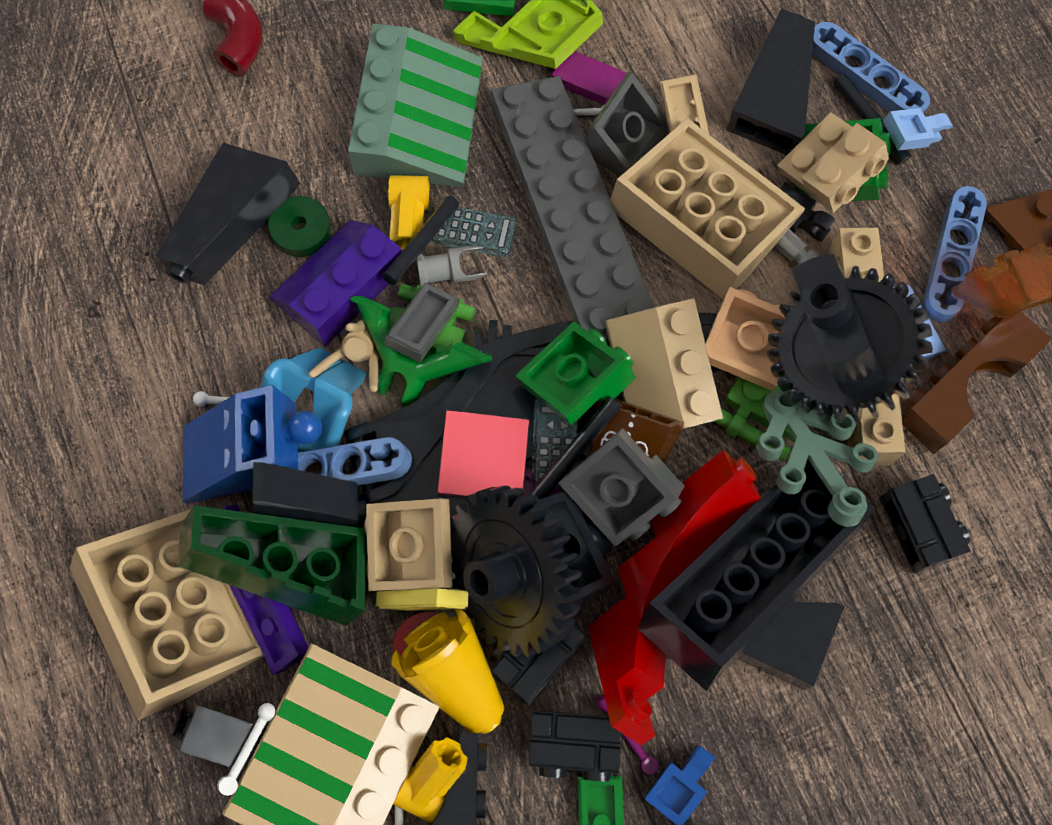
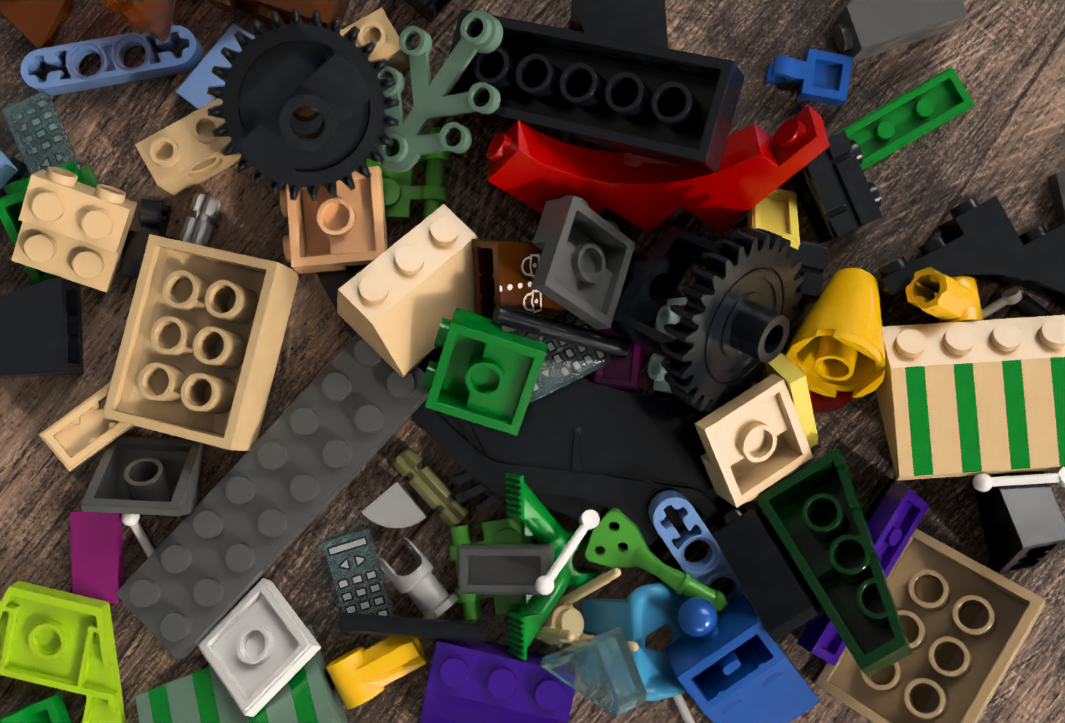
camera: 115 degrees left, 15 degrees up
(308, 340) = (600, 671): none -> clear light blue slope
(374, 420) = (639, 555): none -> bright green piece
(421, 397) = (588, 520): none -> white hinge
(468, 142) = (258, 647): none -> white tile
(481, 453) = (617, 422): coral tile -> none
(511, 279) = (395, 508): none -> light grey tile
(513, 310) = (430, 487): none -> olive axle
(573, 671) = (778, 215): none -> light yellow tile
(918, 181) = (39, 133): none -> clear light blue tile

